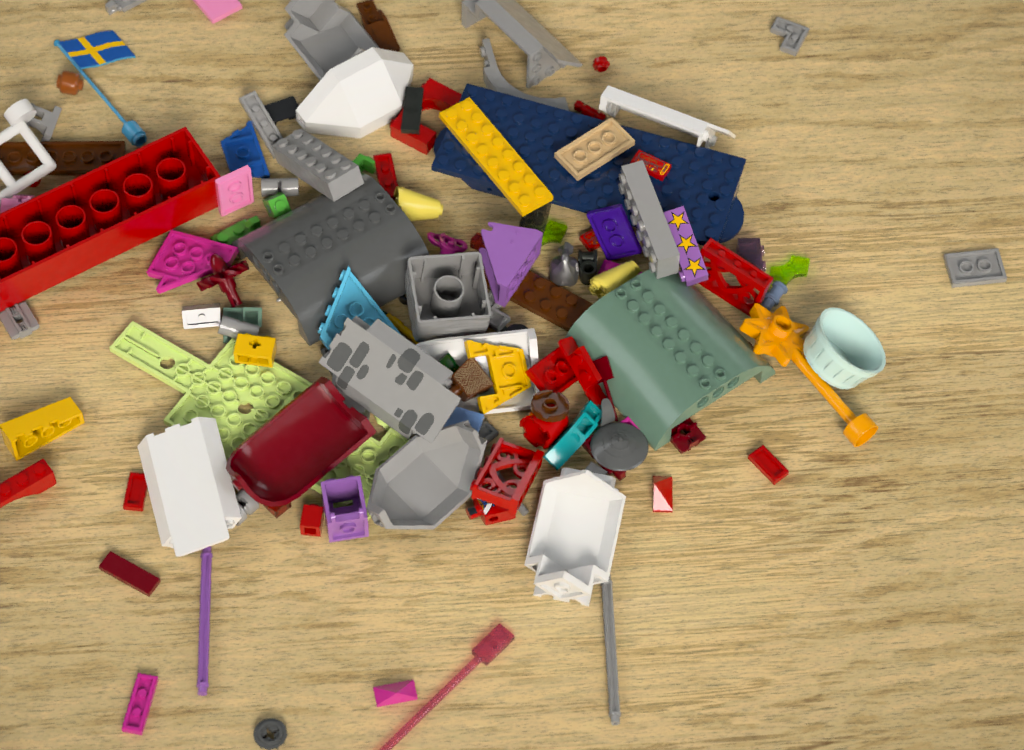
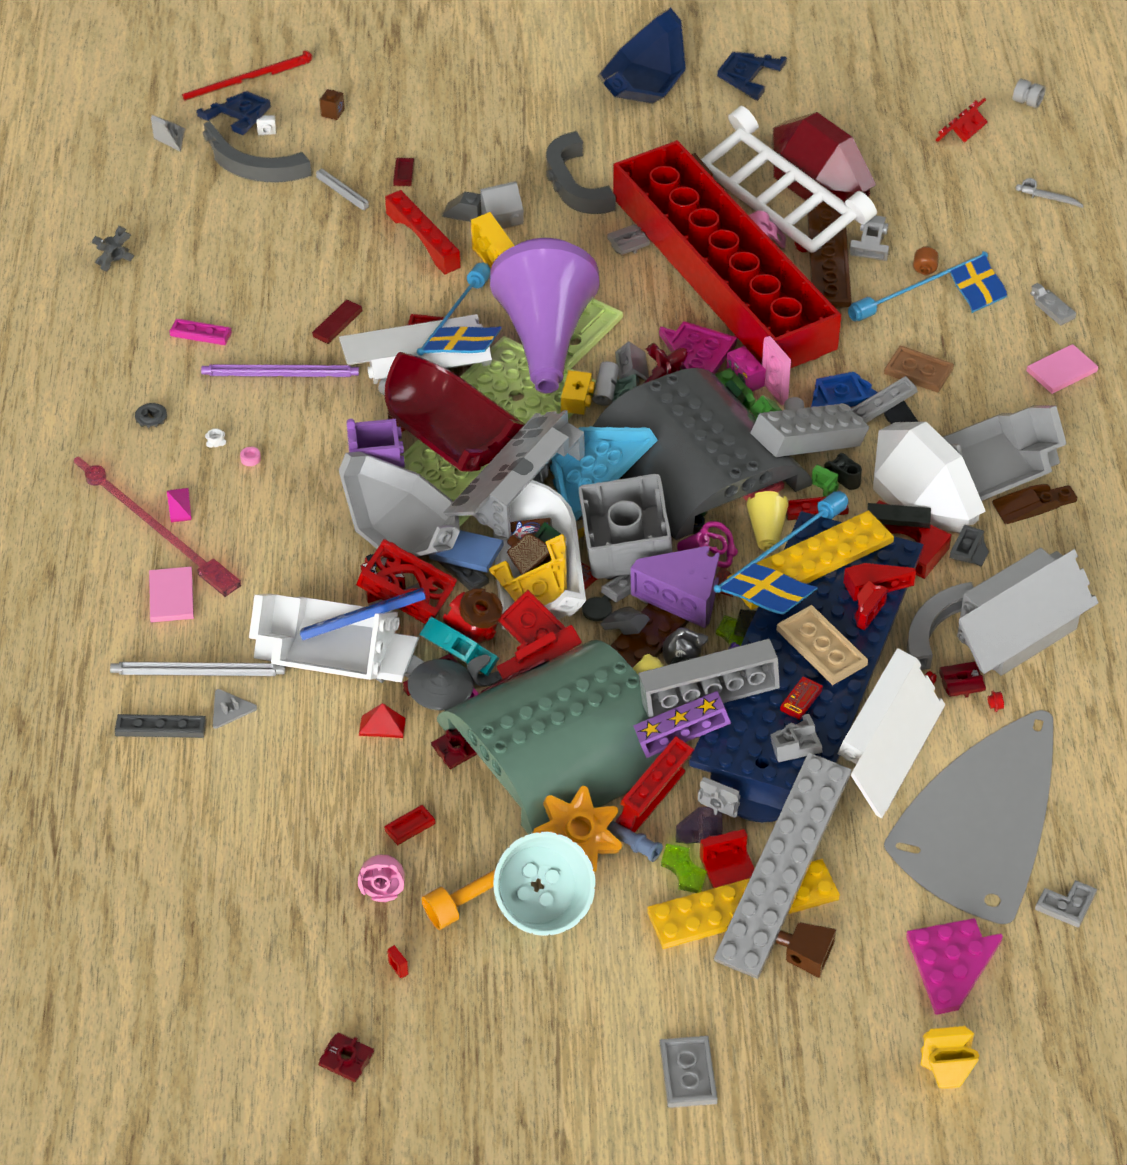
camera: 95 degrees right, 10 degrees down
(155, 365) = (545, 292): none -> medium lavender piece
(193, 443) = (463, 338): none -> flag
(210, 98) = (919, 368): none -> medium nougat tile
(215, 220) = (746, 368): none -> dark pink brick
(253, 225) = (736, 391): none -> dark green tile
(304, 663) = (215, 438): none -> white plate
(327, 635) = (250, 456): none -> bright pink tile
(349, 148) = (848, 471): none -> pearl dark grey piece
(428, 69) = (970, 546): none -> dark grey slope
(517, 683) = (171, 594): none -> bright pink tile
(523, 116) = (881, 575): none -> red slope
(536, 183) = (769, 587): none -> flag
(537, 307) = (626, 619): none -> dark grey slope
(552, 115) = (870, 602): none -> red slope
(554, 504) = (362, 613): none -> tile
(574, 79) = (970, 679): none -> dark red piece
(651, 619) = (229, 708): none -> light grey piece
(679, 673) = (160, 726): none -> dark grey tile
(694, 168) = (796, 740): none -> light grey slope
(715, 82) = (981, 821): none -> light grey piece
(741, 232) = (719, 797): none -> light grey piece
(784, 239) = (726, 858): none -> red bracket
(800, 191) = (782, 866): none -> light grey plate
(818, 233) = (713, 909): none -> yellow plate
(832, 474) = (381, 878): none -> bright pink cylinder
(852, 107) = (951, 960): none -> dark pink wing
(857, 188) = (808, 946): none -> reddish brown torso
(912, 460) = (397, 962): none -> red tile
(947, 103) = (949, 1055): none -> yellow piece
(1003, 498) = (348, 1068): none -> dark red piece

